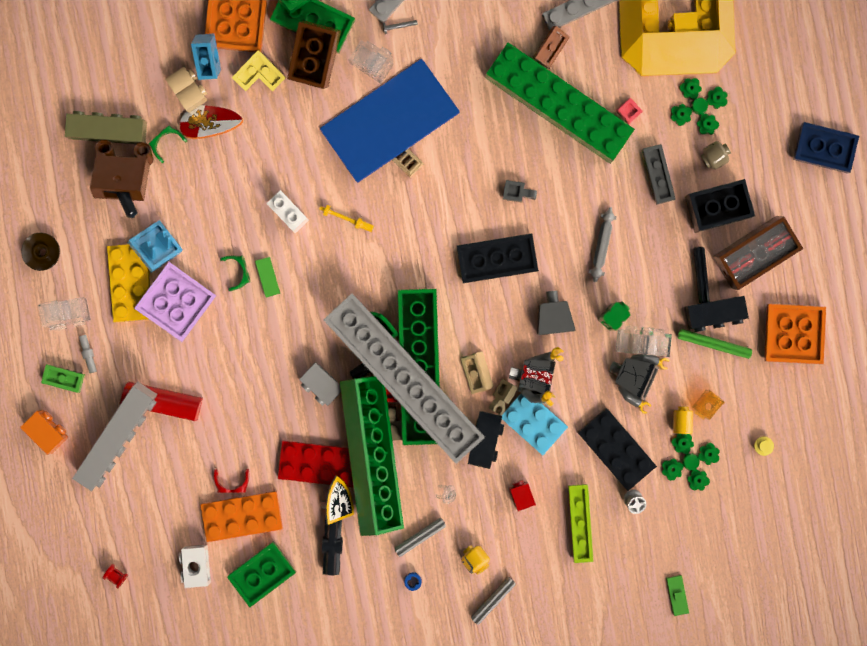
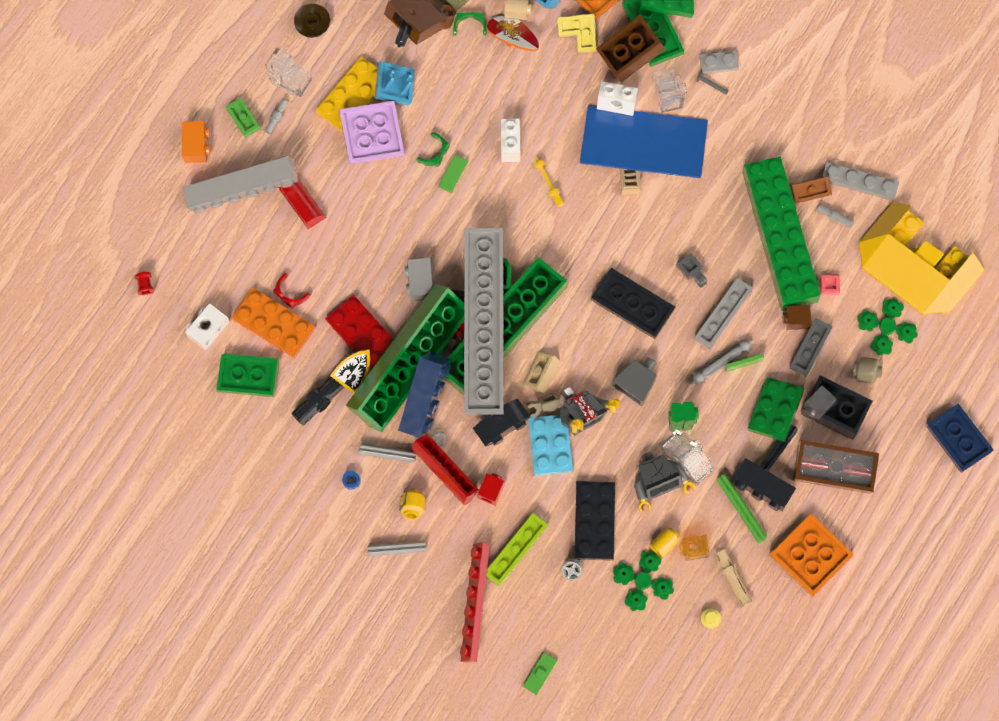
camera: 50 degrees right, 15 degrees down
(338, 104) = (617, 98): none -> white brick
(413, 475) = (424, 394): none -> dark blue brick
(476, 513) = (445, 469): none -> red brick
(571, 205) = (723, 313): none -> light grey plate
(586, 51) = (835, 215): none -> light grey bar
(587, 590) = (475, 600): none -> red plate
(619, 230) = (745, 361): none -> bright green piece
(629, 160) = (797, 317): none -> reddish brown brick
(675, 246) = (776, 409): none -> green plate
(710, 218) = (819, 403): none -> flat silver brick
(748, 399) = (733, 578): none -> tan pin

